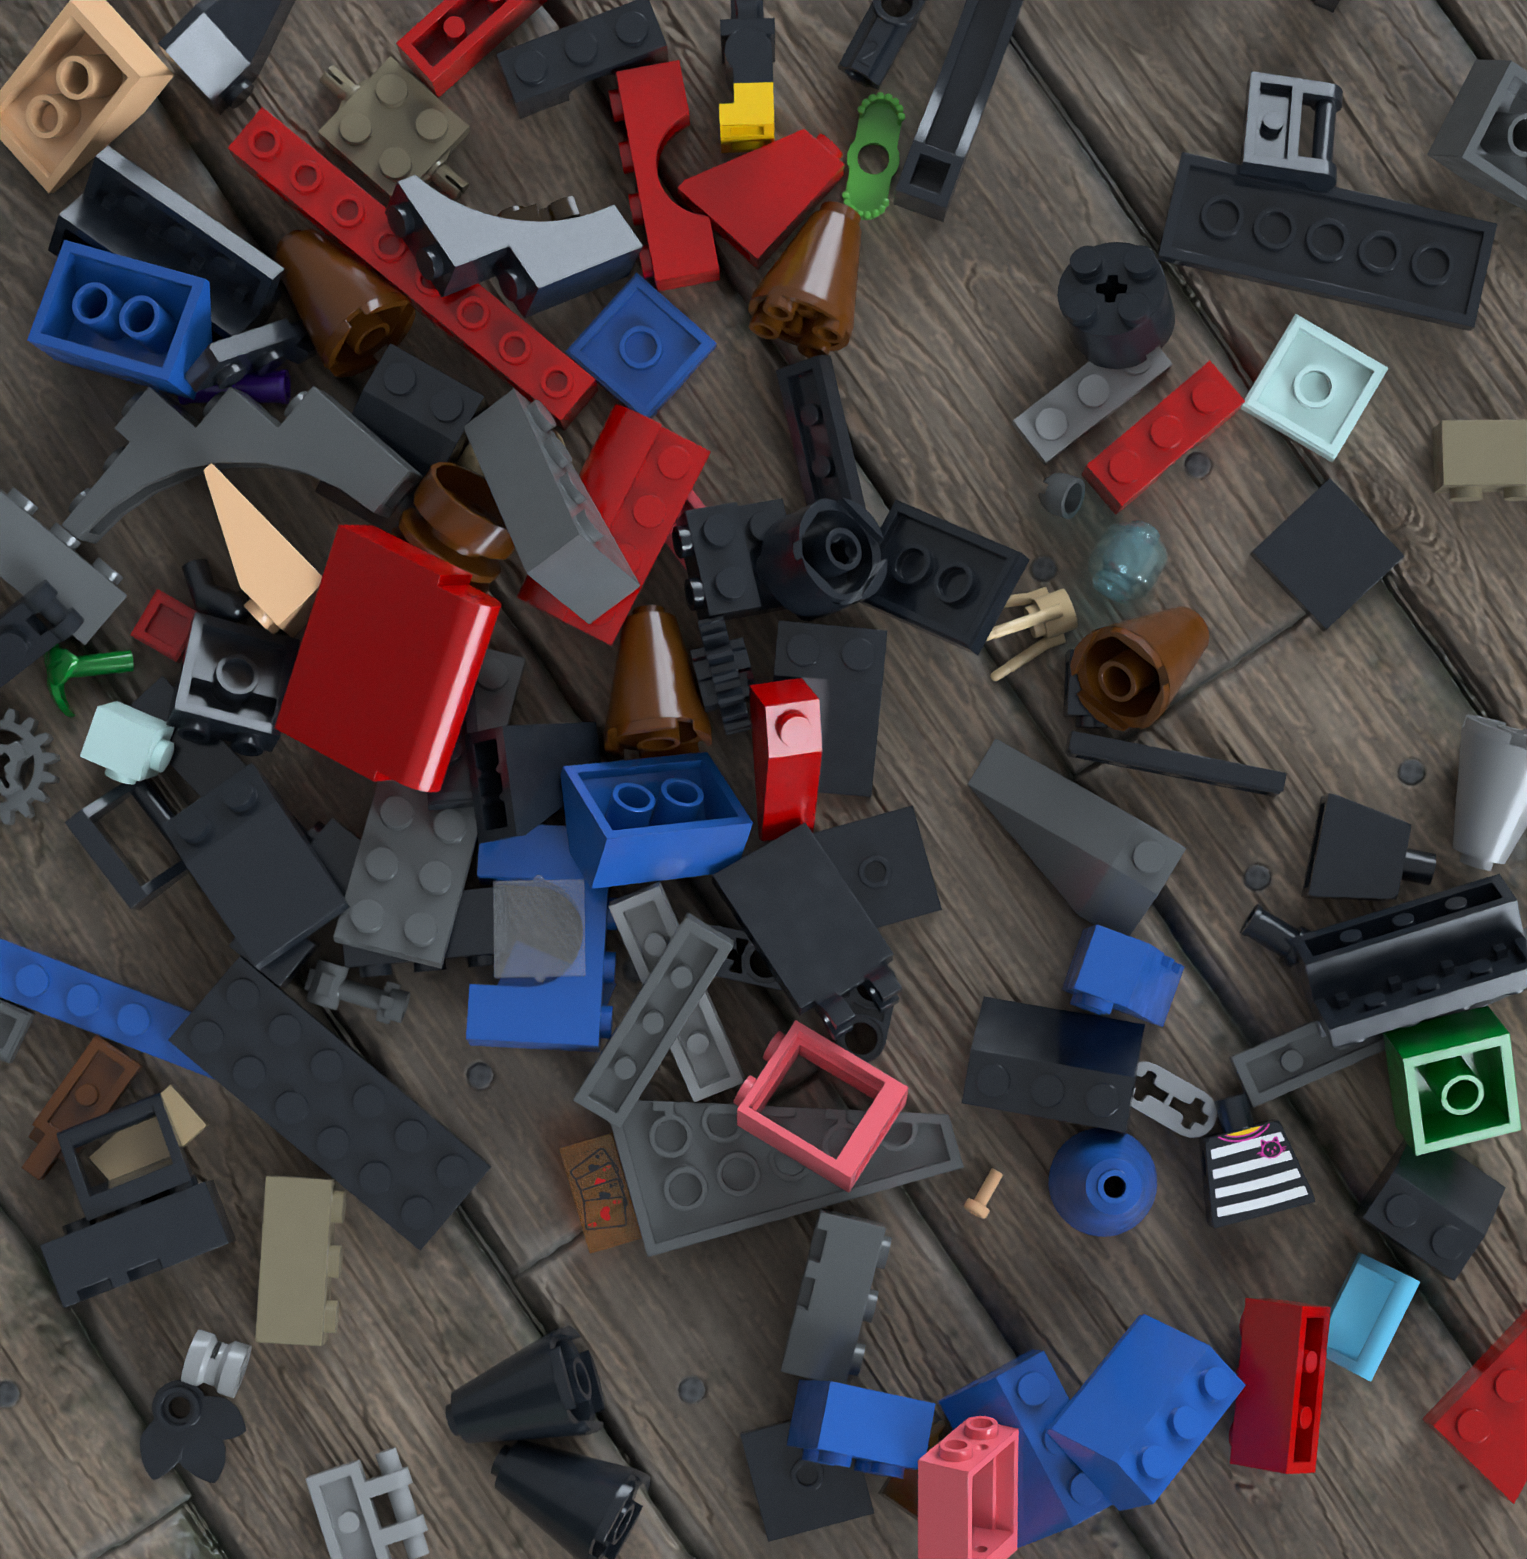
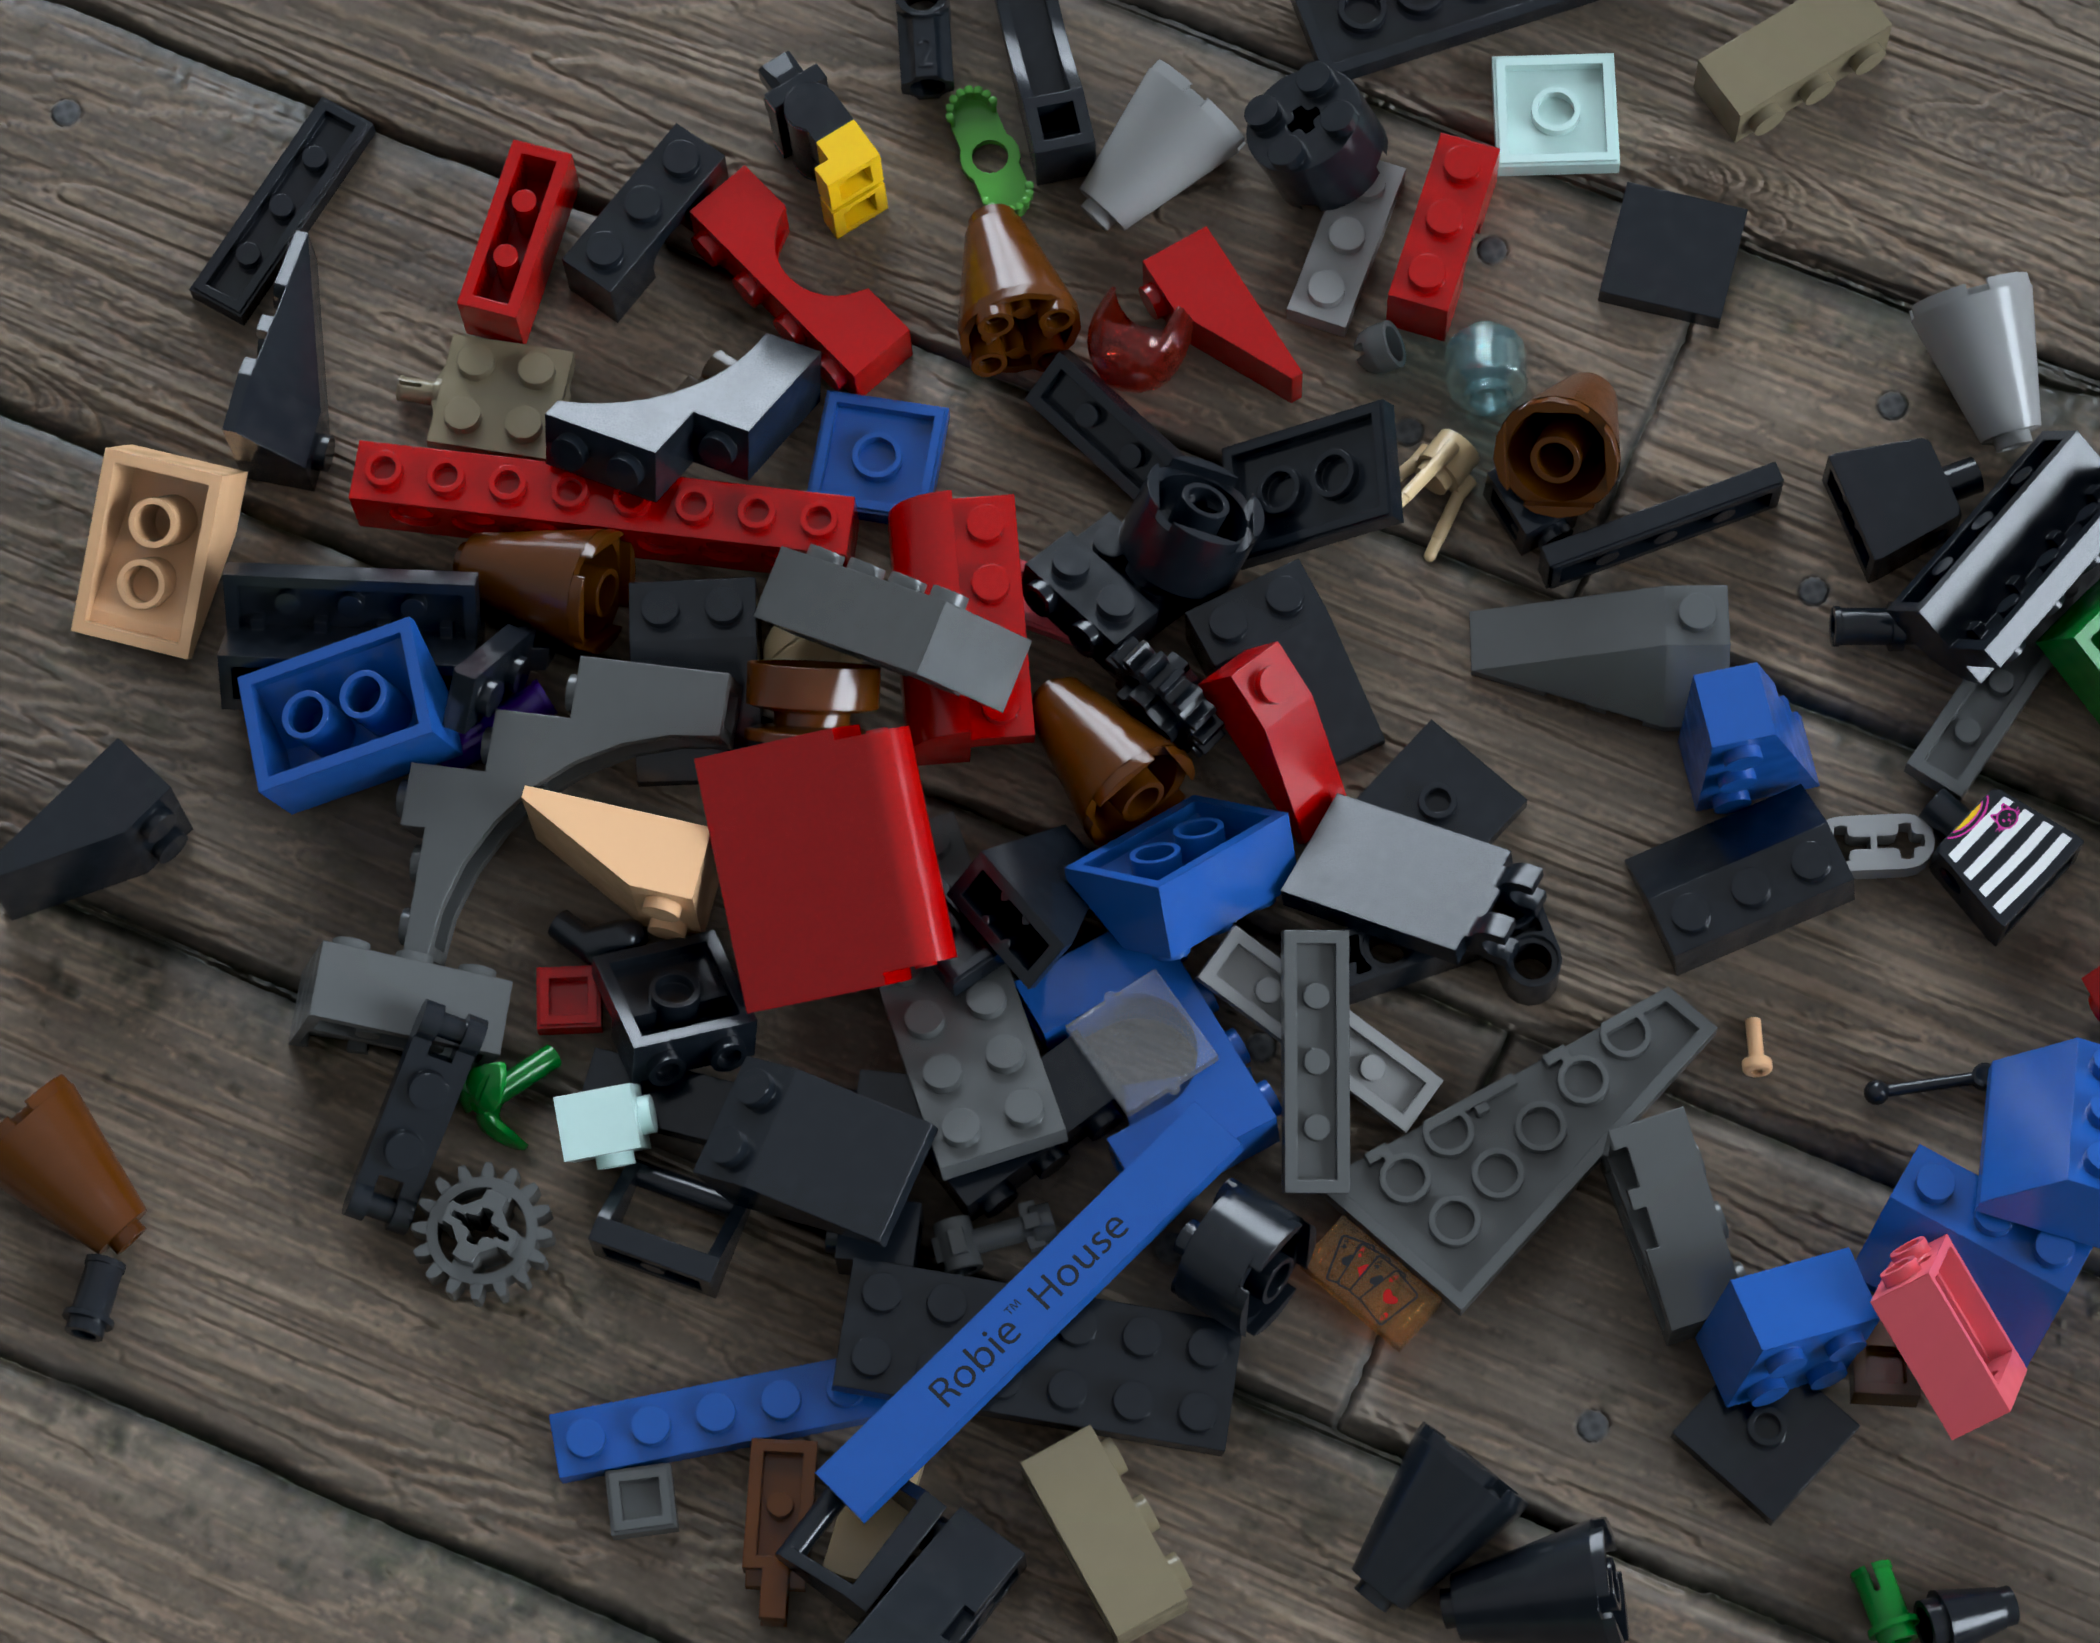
camera: 30 degrees left, 15 degrees down
(334, 1079) = (1029, 1311): none -> blue tile
(513, 1128) = (1241, 1258): none -> black brick
(765, 193) = (907, 240): red slope -> none
(780, 1054) = (1526, 999): coral window -> none
(876, 386) = (1135, 355): none -> clear red hair
(956, 384) = (1223, 312): none -> red slope
(994, 237) = (1157, 149): none -> light grey cone
(1049, 1281) = (1877, 1091): none -> black hinge
(1079, 1179) = (1864, 961): blue cone -> none

